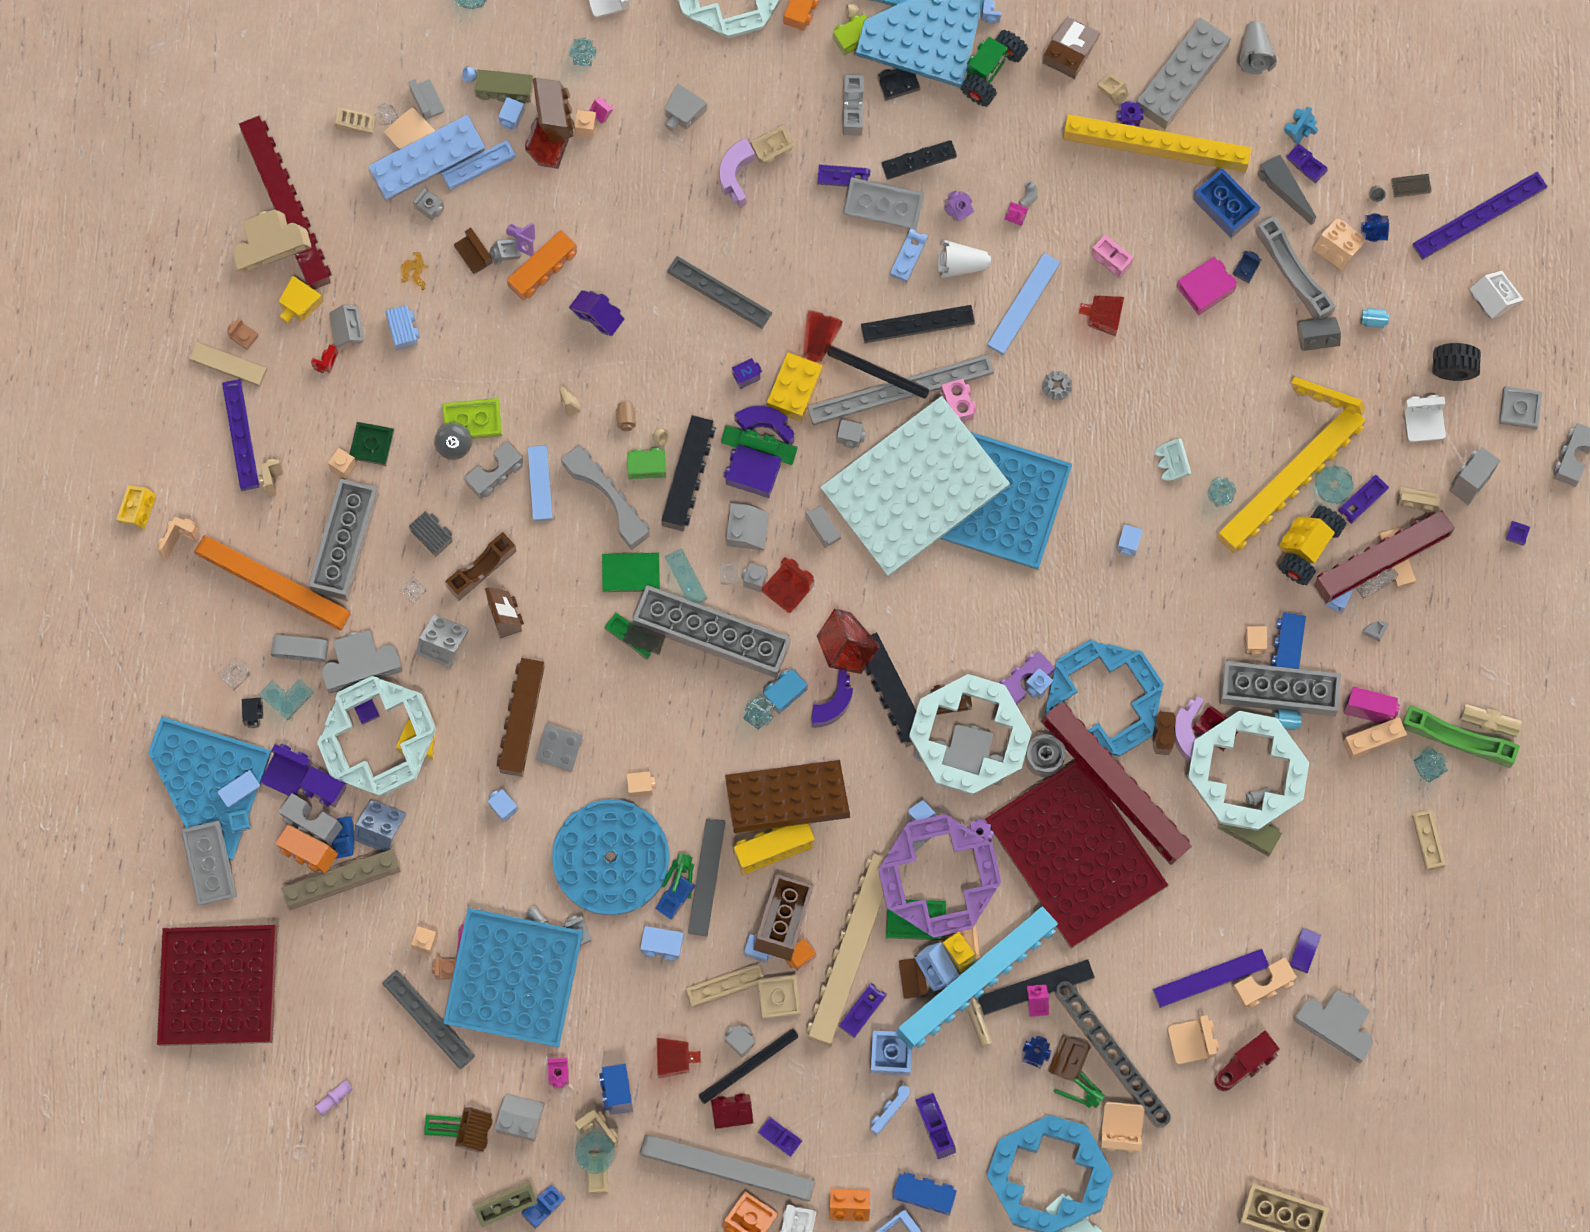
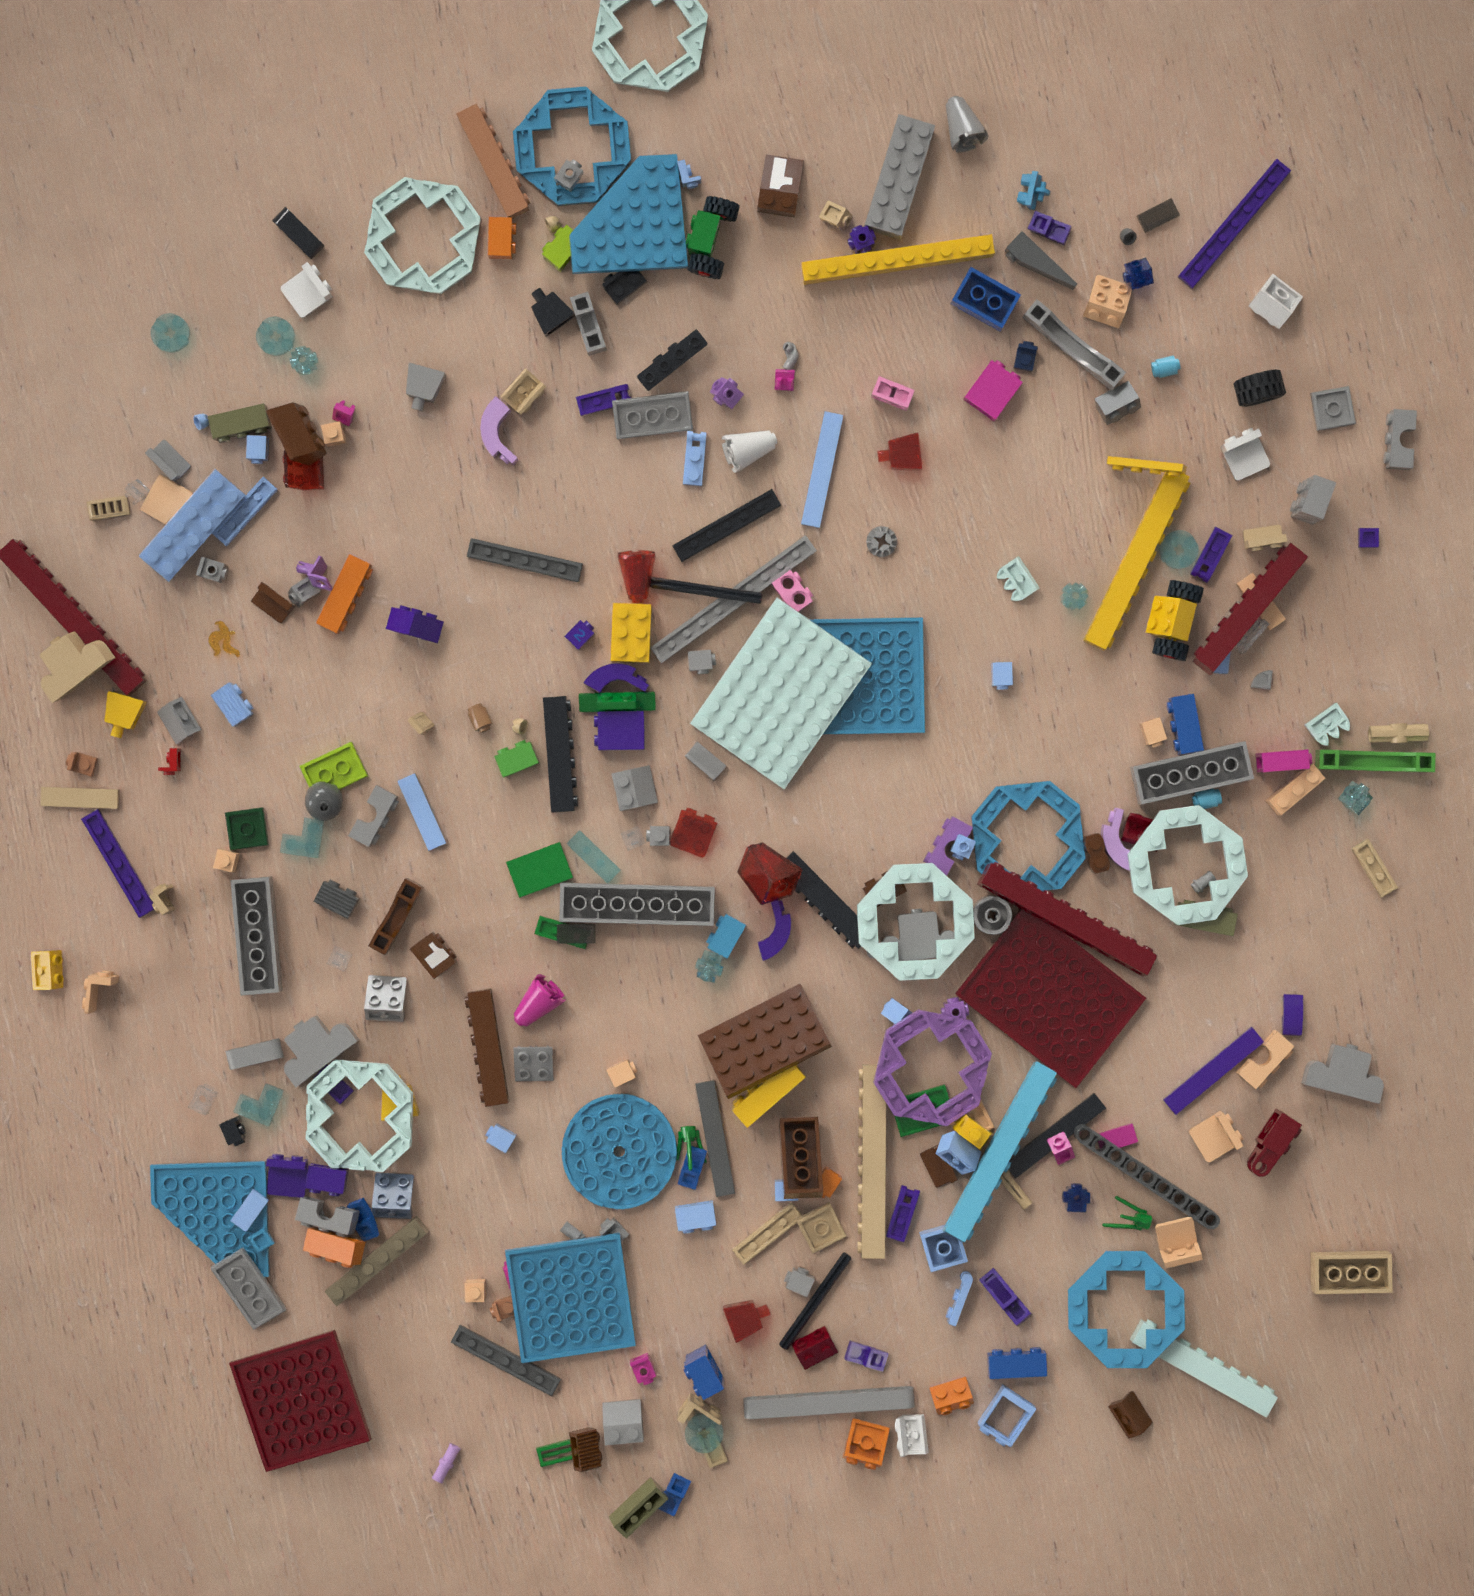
camera: 20 degrees left, 15 degrees up
(272, 582) = (204, 999): orange beam -> none
(421, 475) = (308, 843): none -> clear light blue plate
(558, 16) = (266, 330): none -> clear light blue plate
(582, 468) = (523, 827): light grey arch -> none
(584, 689) = (538, 1001): none -> dark pink cone
(823, 85) = (550, 311): none -> black torso
(1069, 1058) = (1108, 1192): reddish brown plate -> none
(1102, 1009) = (1120, 1136): none -> dark pink tile
(1425, 688) = (1328, 723): none -> light aqua plate

